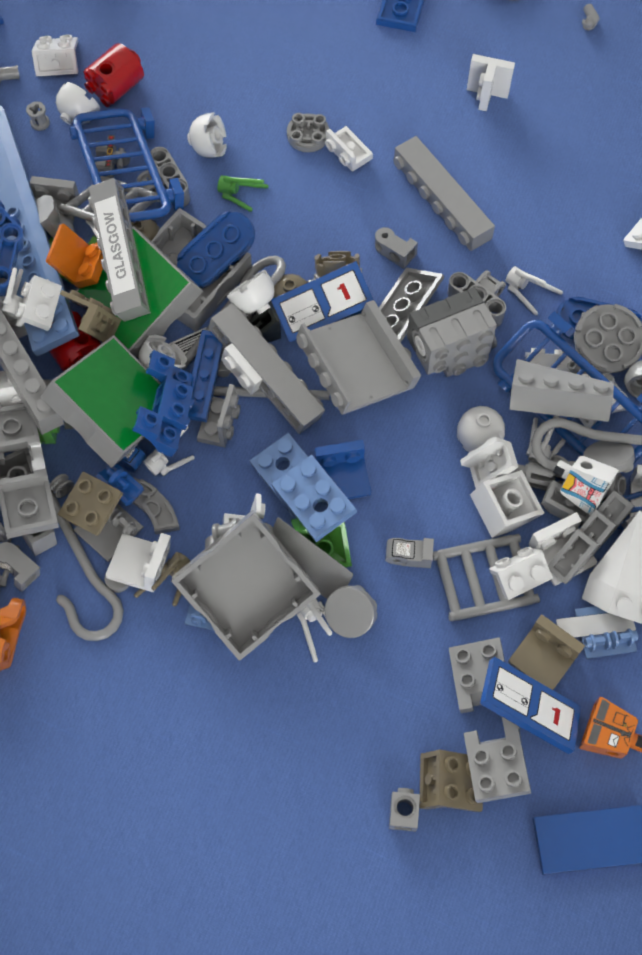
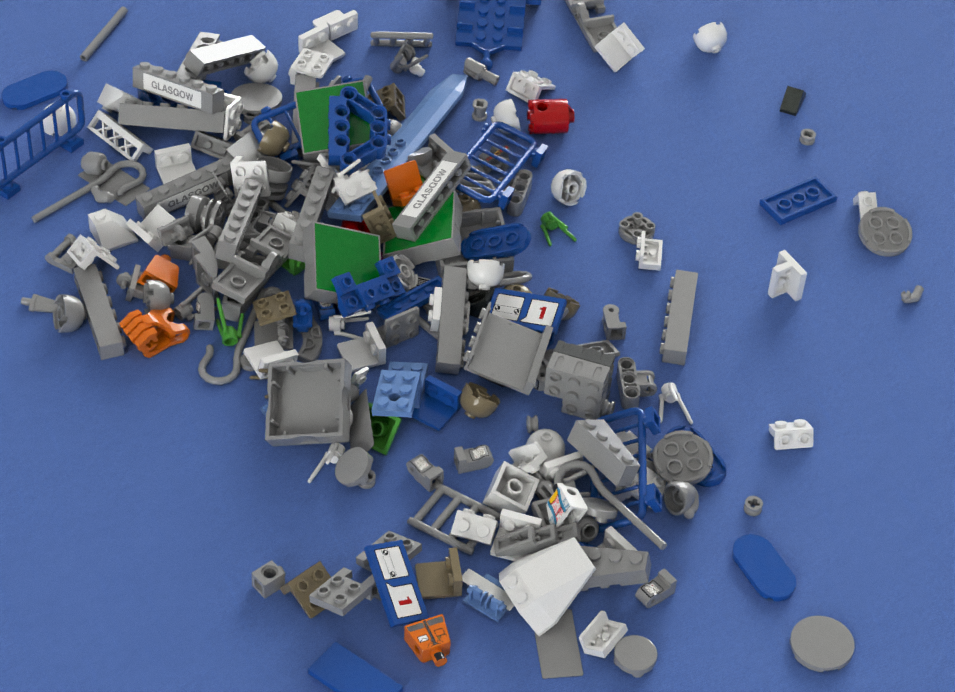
camera: 40 degrees right, 20 degrees down
(67, 569) = (228, 333): none -> bright green plant
(213, 470) = (364, 351): none -> white bracket
(380, 434) = (477, 401): none -> dark tan cylinder
(434, 499) = (472, 458): none -> light grey leg
(444, 414) = (532, 423): none -> light grey bush
(518, 432) = (549, 468): none -> white bracket

